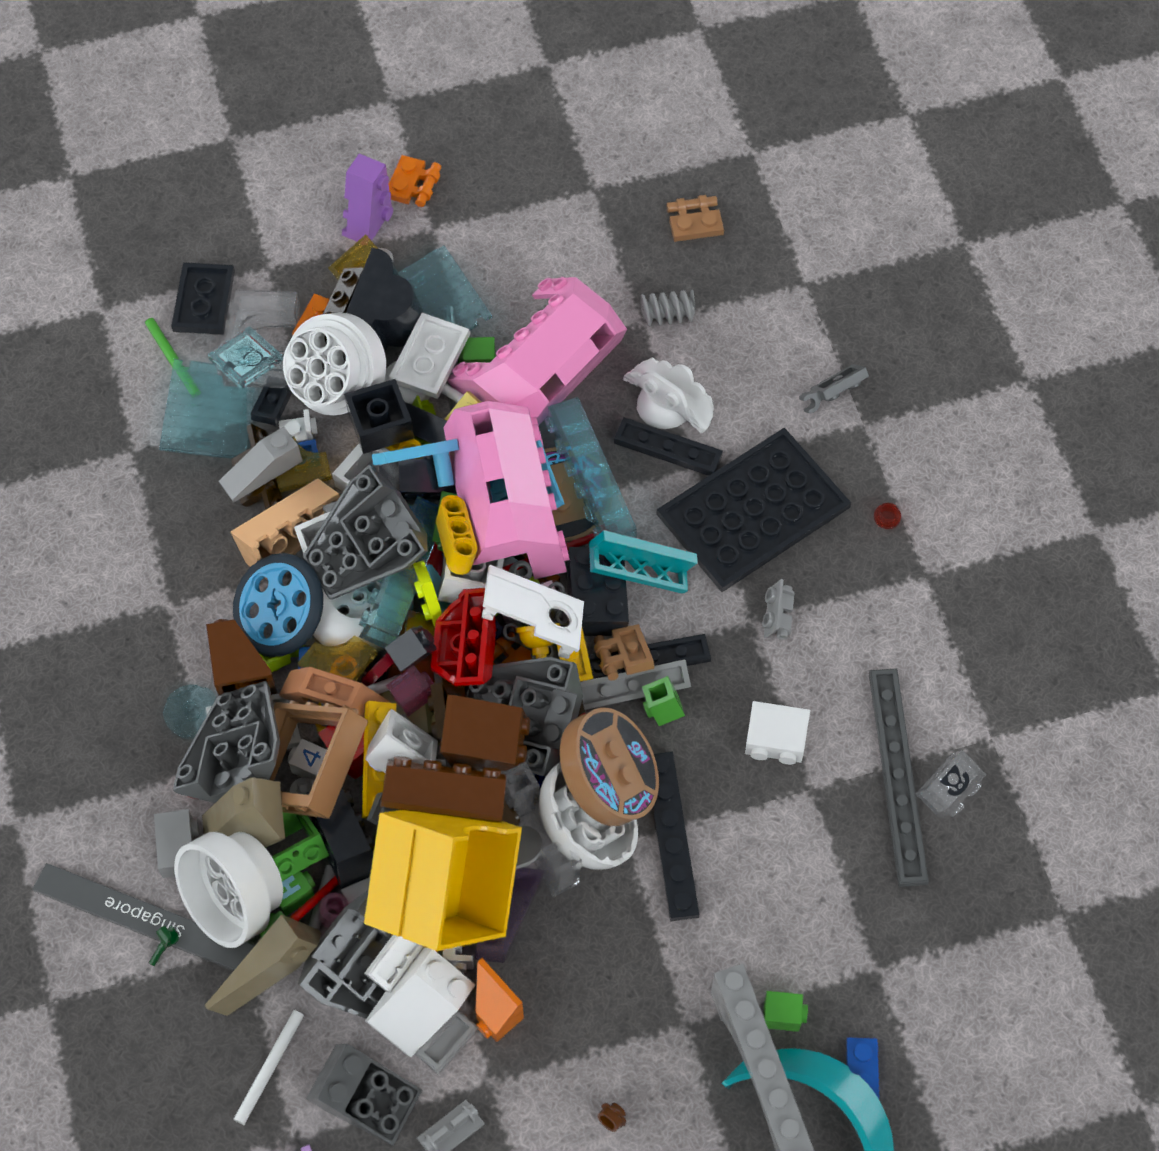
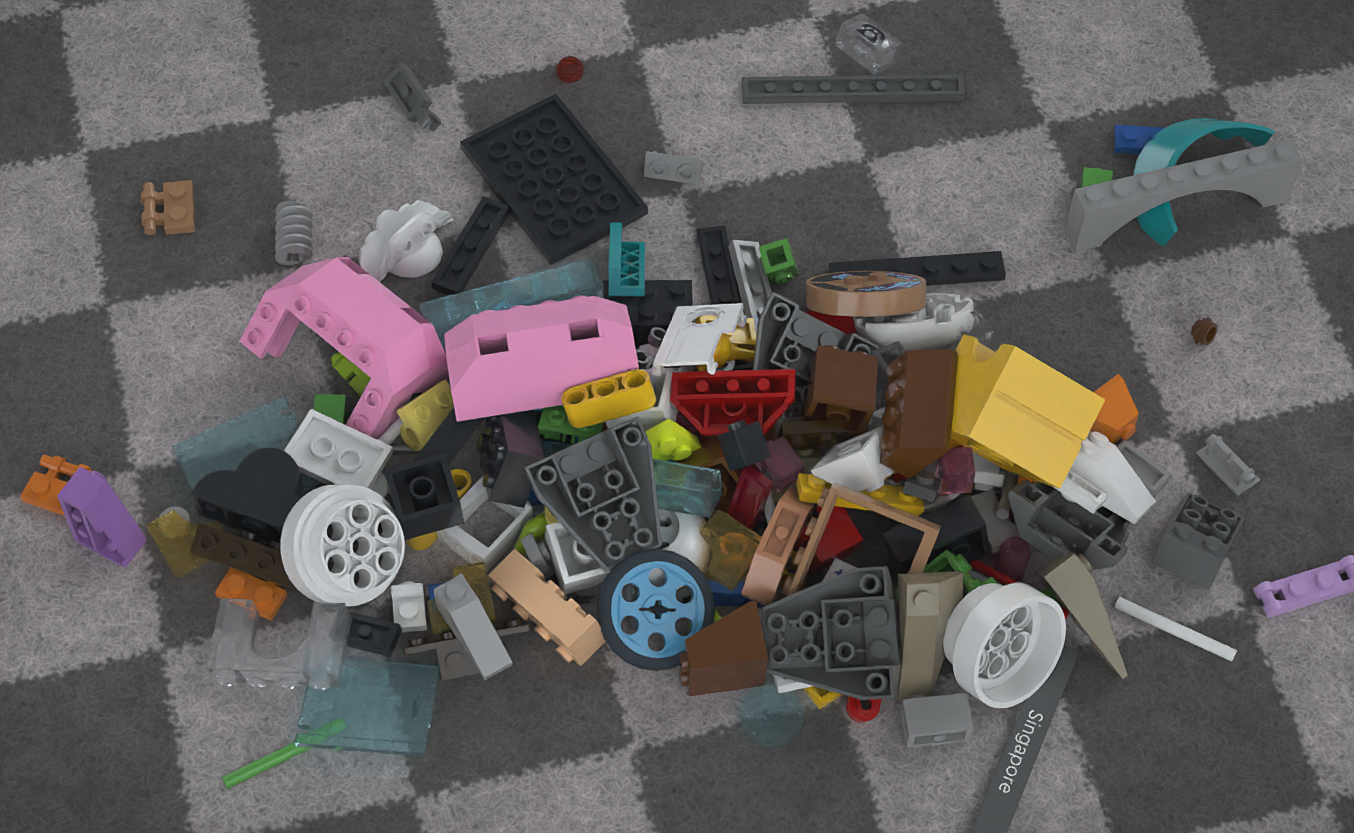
camera: 90 degrees left, 5 degrees down
(168, 938) = (1049, 721): dark green hand -> none
(203, 298) = (202, 717): black plate -> none
(245, 357) = (320, 642): clear light blue tile -> none
(440, 454) = (509, 426): medium azure piece -> none
(632, 650) = (723, 281): medium nougat plate -> none
(777, 732) = (817, 170): white slope -> none

